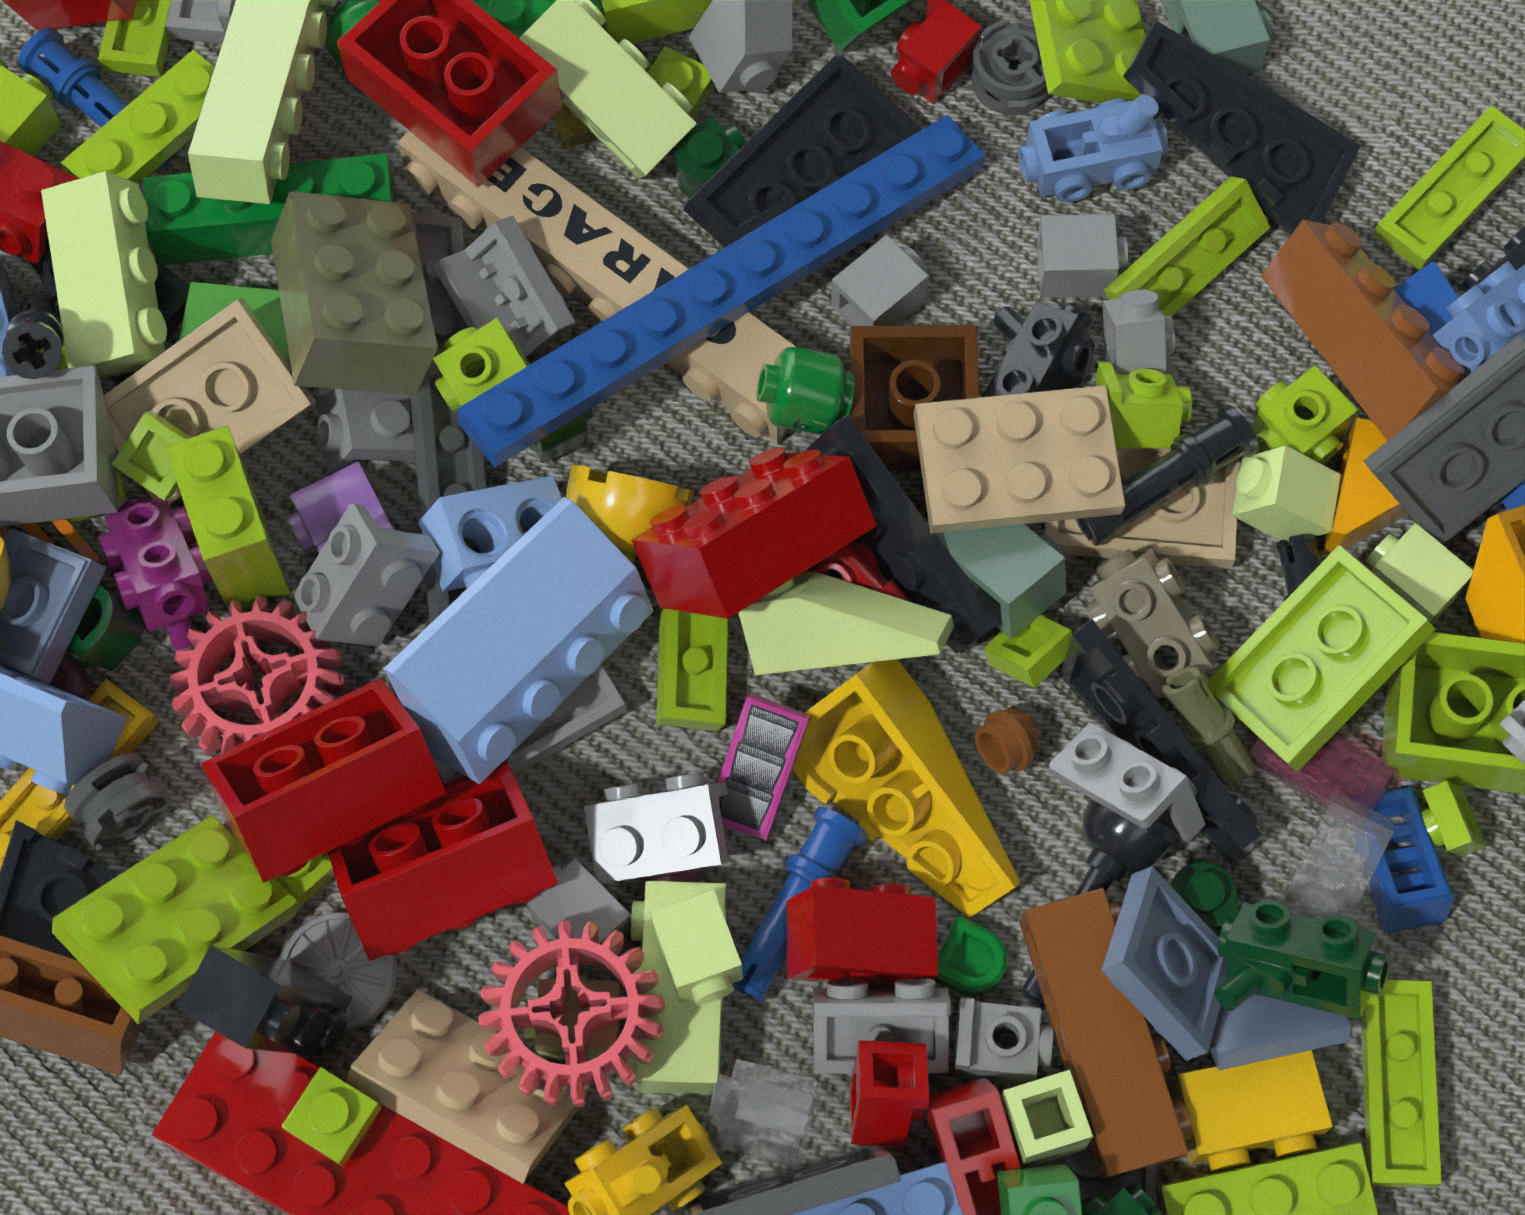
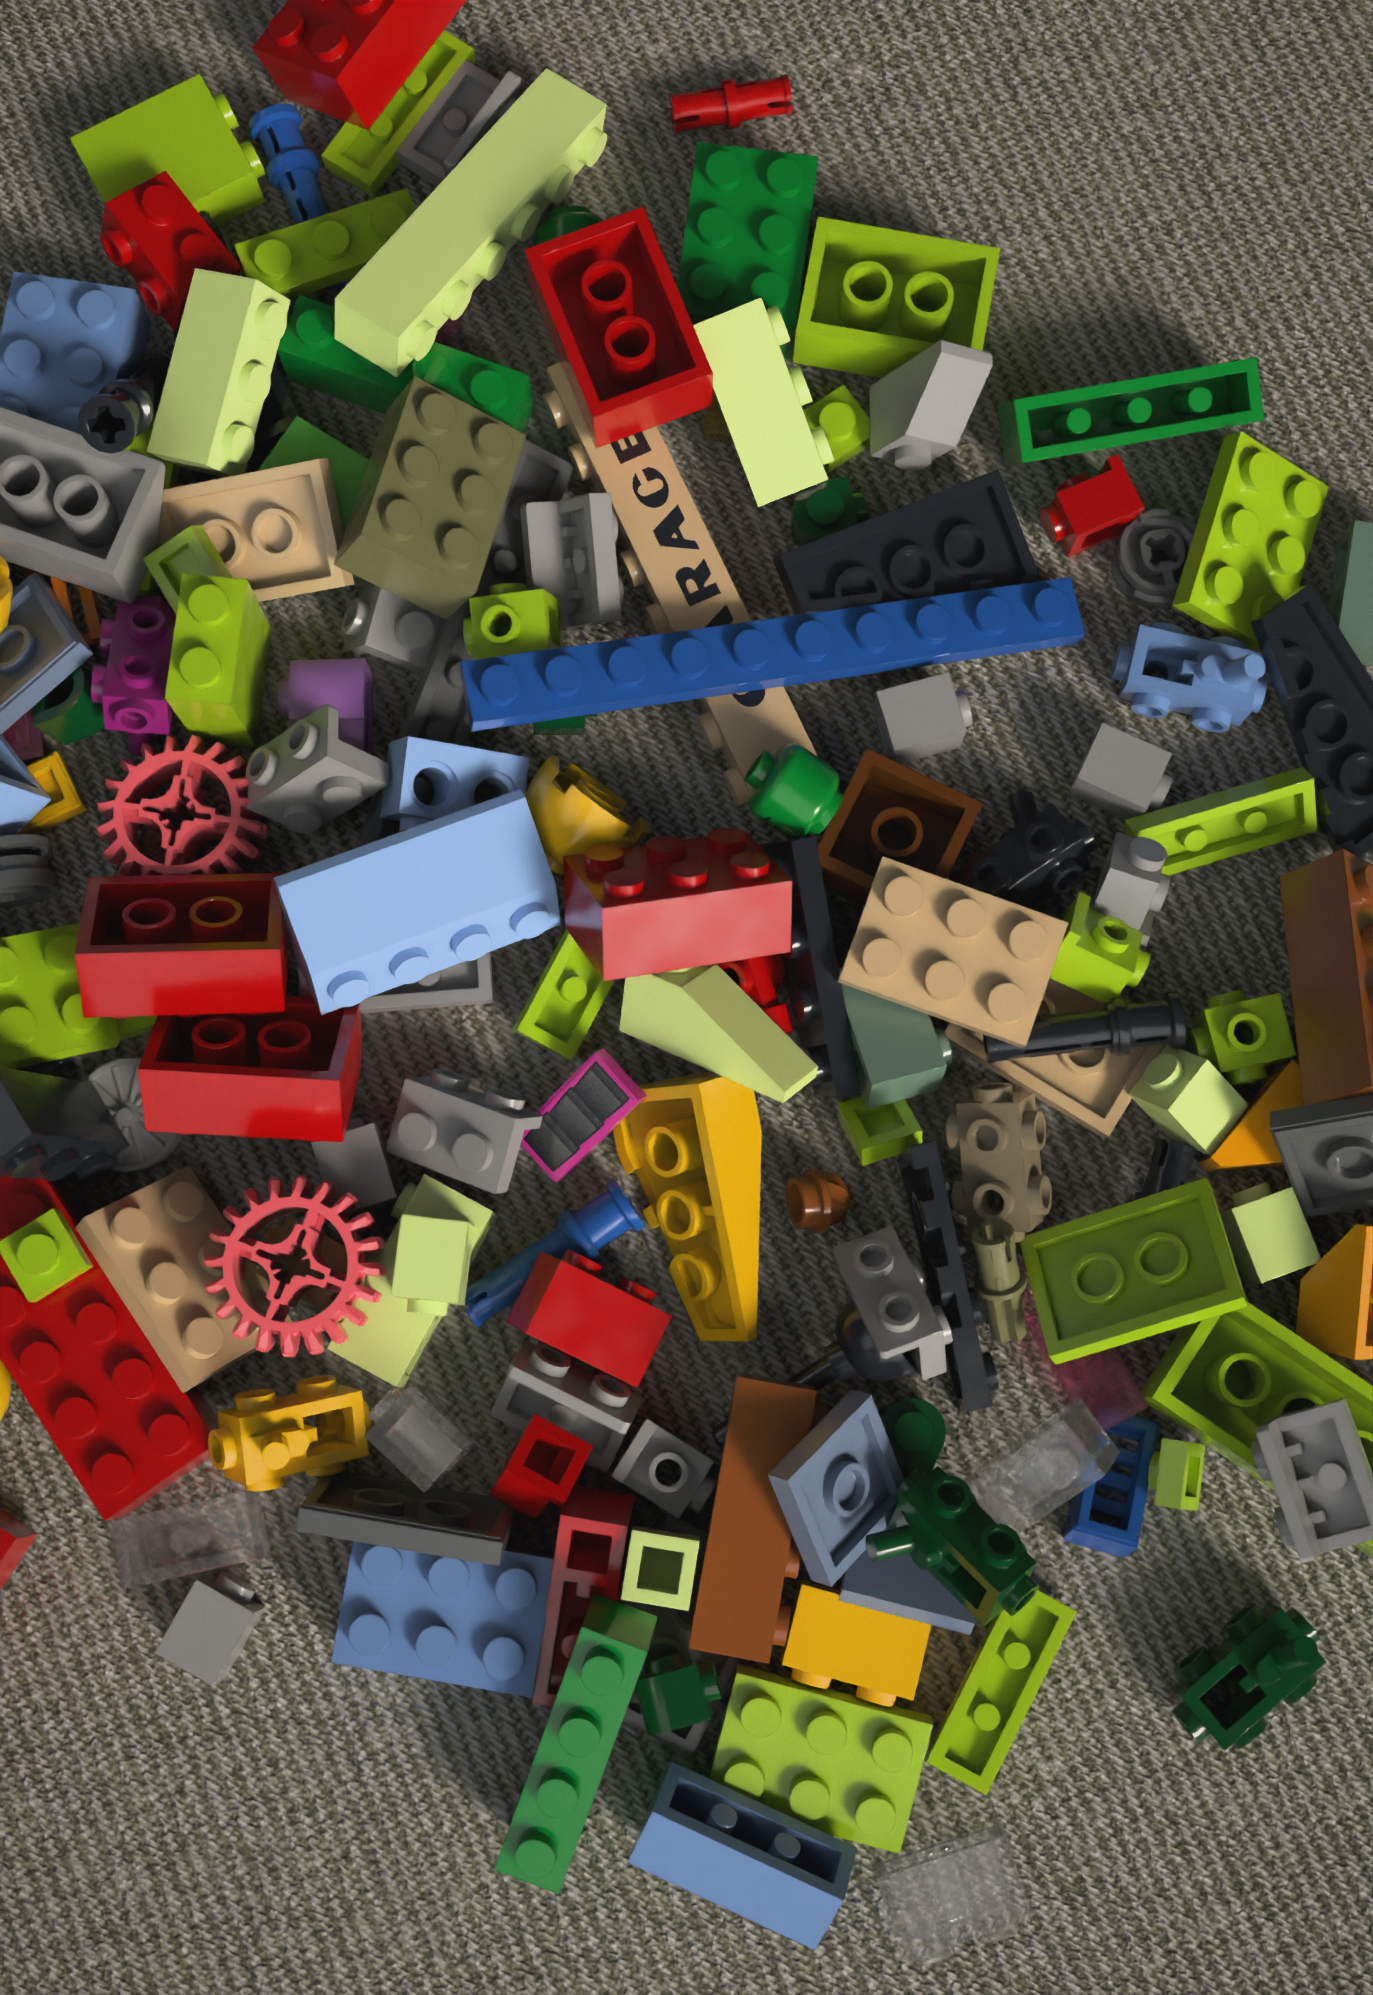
camera: 25 degrees right, 10 degrees up
(971, 959) = (681, 1379): green tile -> none

